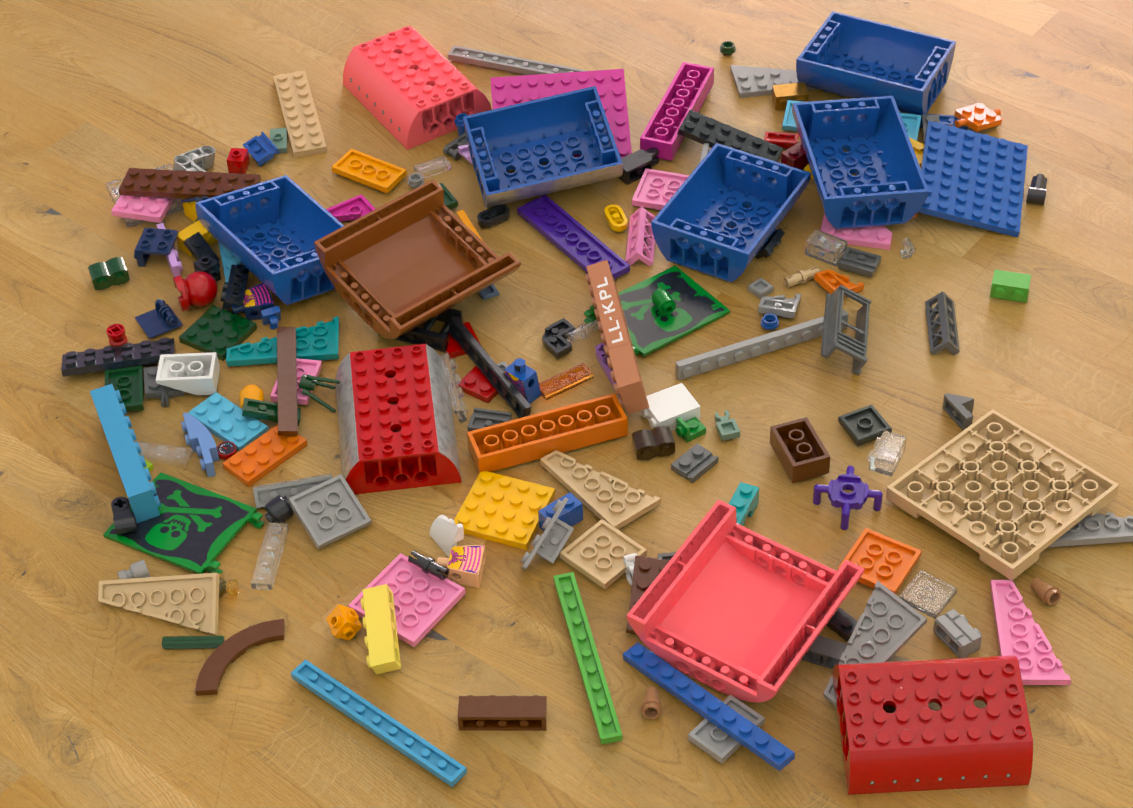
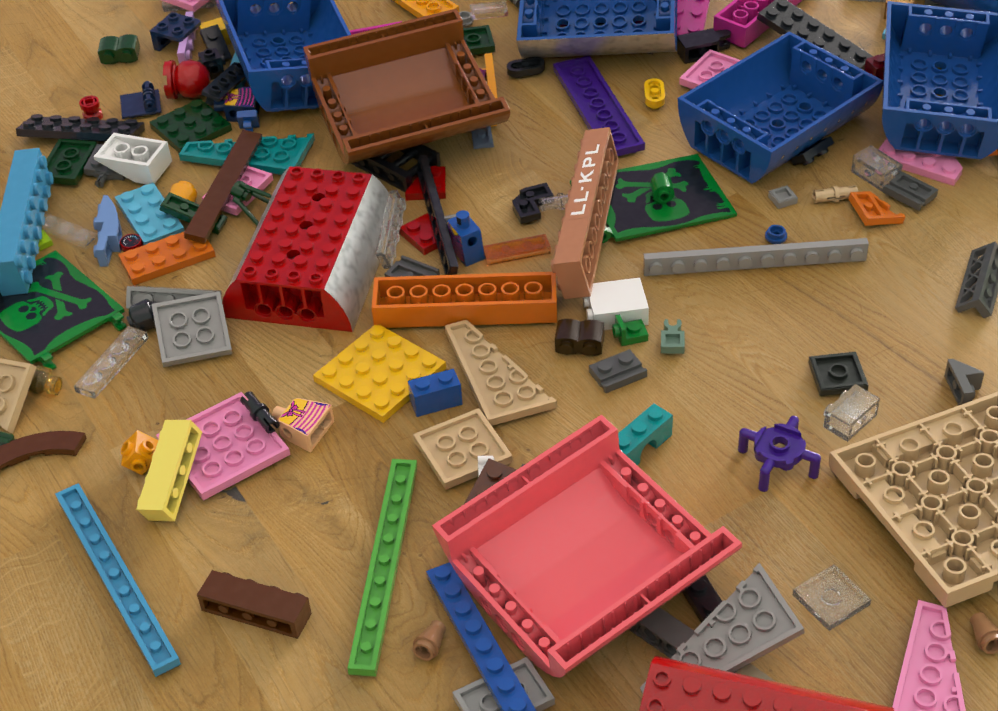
camera: 20 degrees right, 0 degrees up
(446, 533) = (300, 380): white slope -> none
(552, 538) = (408, 416): light grey bracket -> none
(636, 238) = (664, 122): bright pink fence -> none
(779, 305) = (795, 219): light grey wing -> none
(783, 140) = (871, 46): red plate -> none
(799, 449) = (744, 383): reddish brown brick -> none
(832, 335) = (845, 272): dark grey piece -> none
(882, 559) = (787, 541): orange plate -> none
(909, 248) = (975, 188): clear arm -> none
(957, 633) = (847, 658): light grey brick -> none

